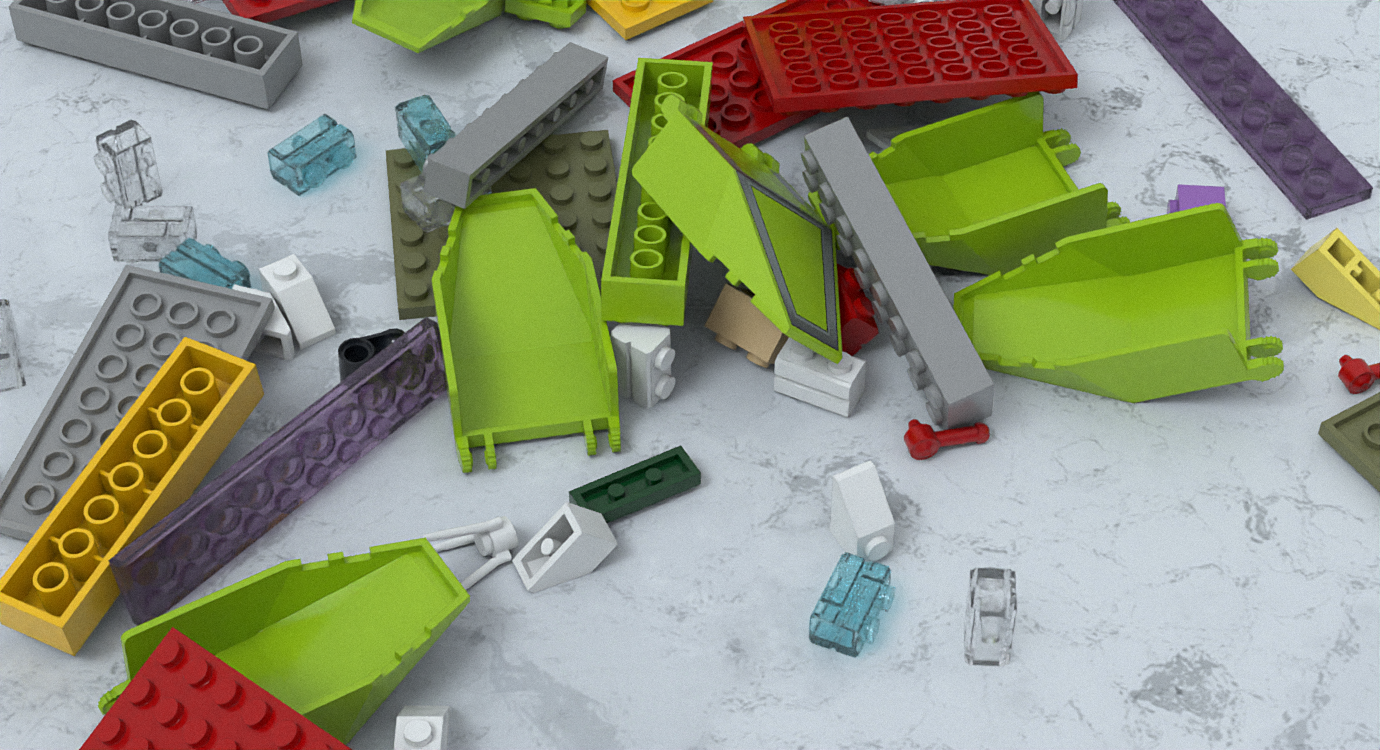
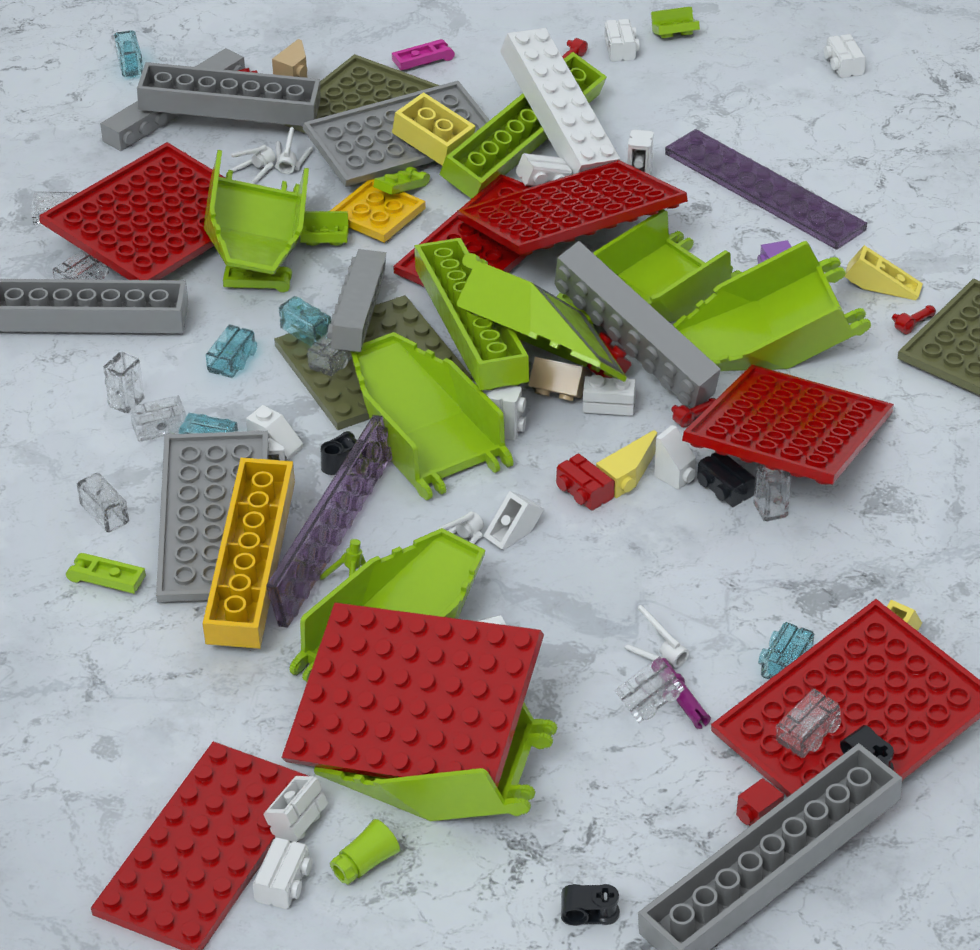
camera: 20 degrees left, 5 degrees down
(273, 547) = (351, 558): none -> lime plant
(439, 59) = (245, 278): none -> lime plate
(638, 485) = (535, 478): dark green plate -> none
(708, 514) = (585, 482): none -> red brick
(785, 505) = (629, 463): none -> light yellow slope
(850, 605) = (690, 506): clear light blue brick -> none
(931, 569) = (726, 478): none -> black brick
(1066, 512) = (789, 424): none -> red plate

